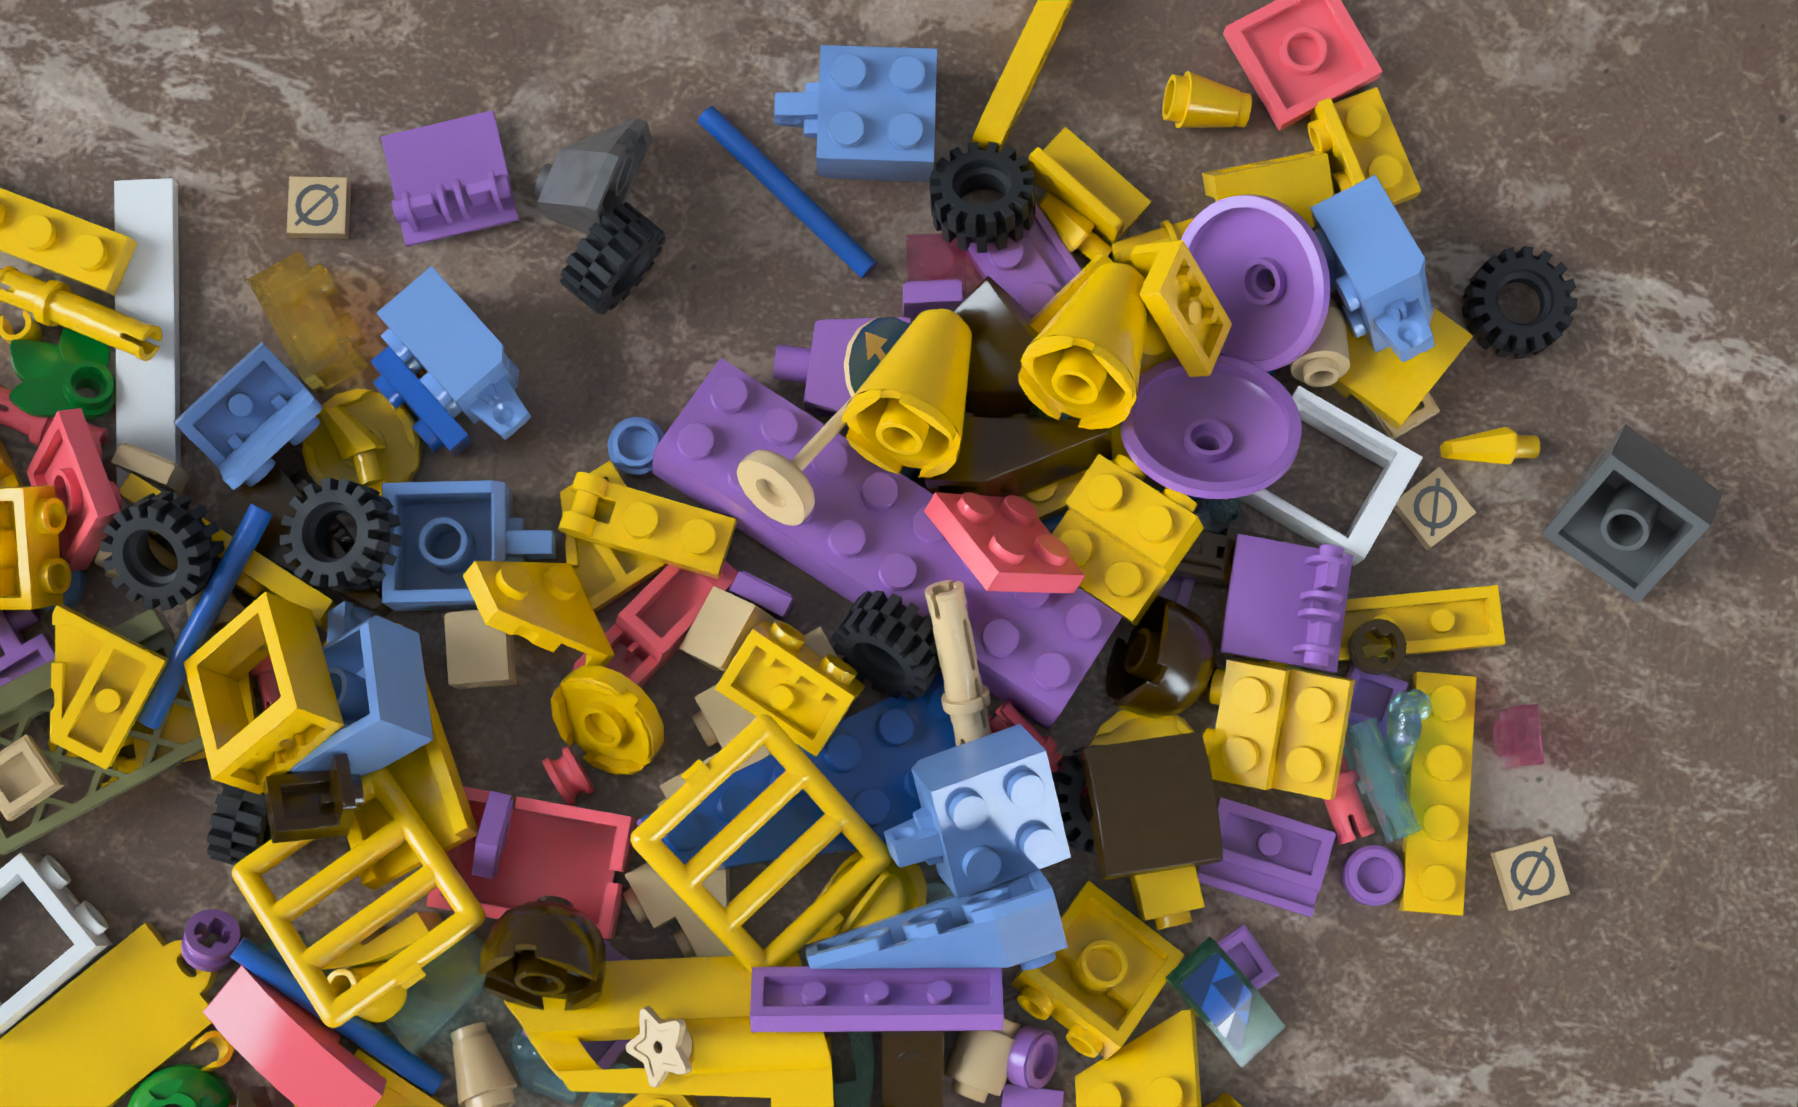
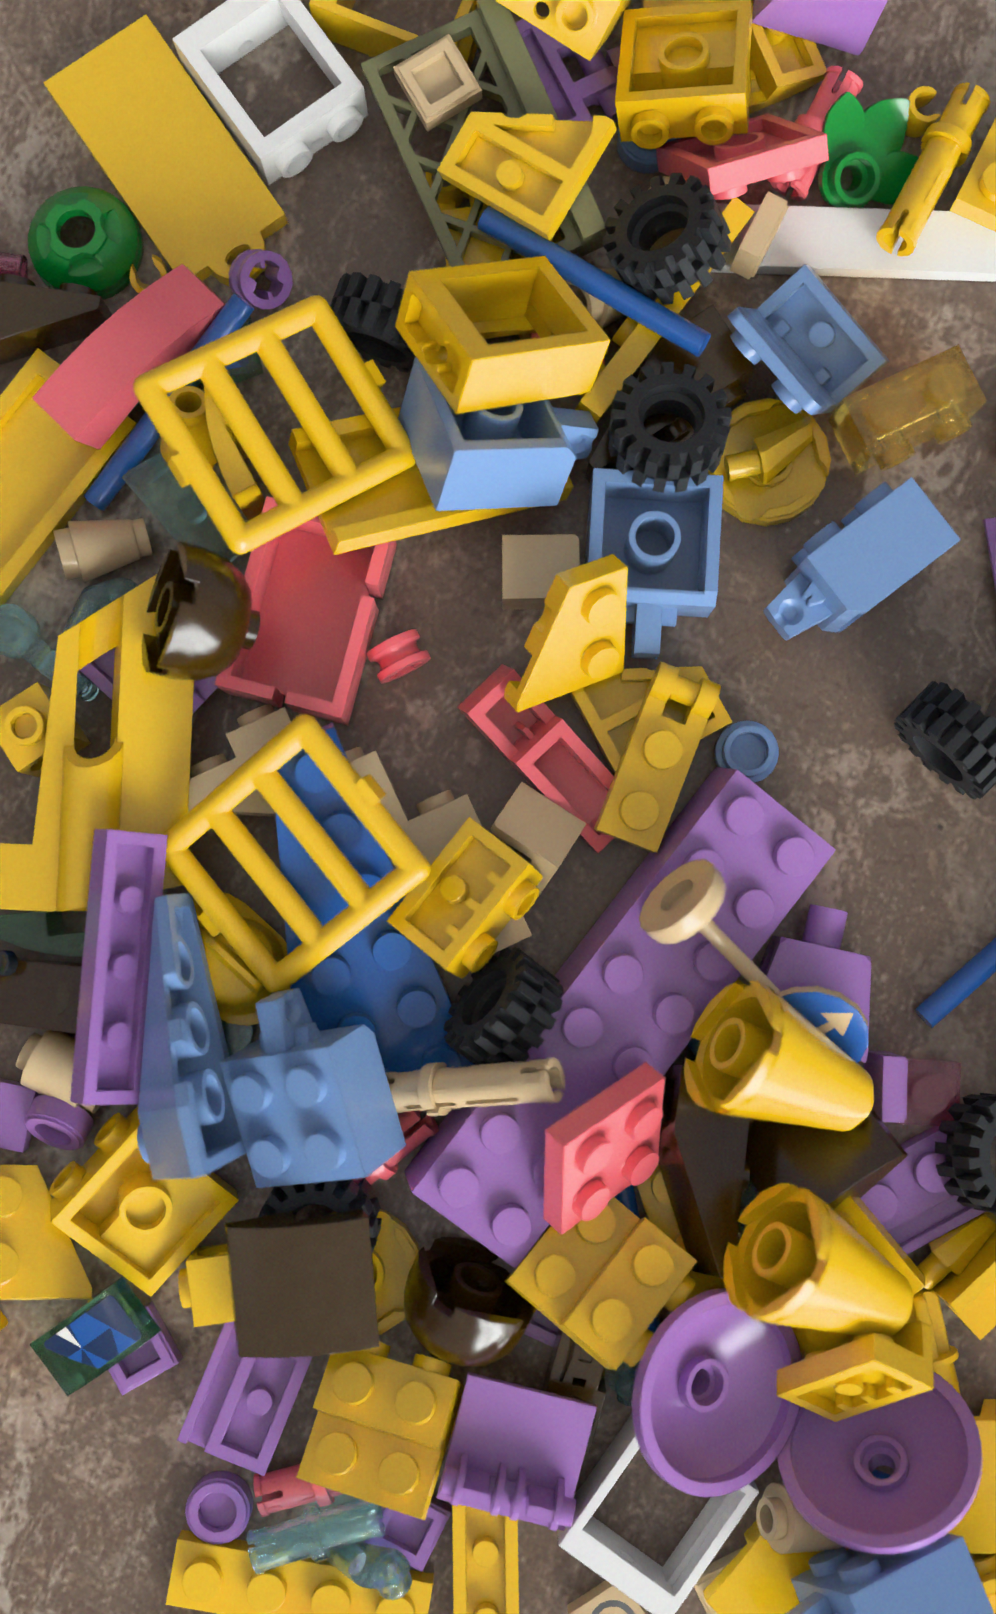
camera: 95 degrees right, 5 degrees up
(313, 802) = (378, 379): dark brown bracket -> none
(401, 386) = (829, 504): blue plate -> none
(492, 835) = (333, 569): medium lavender tile -> none
(607, 719) = (452, 701): yellow tile -> none
(674, 1040) = (77, 735): tan plate -> none
(764, 595) = (572, 874): medium lavender tile -> none
(1380, 629) = (449, 1567): dark brown bush -> none

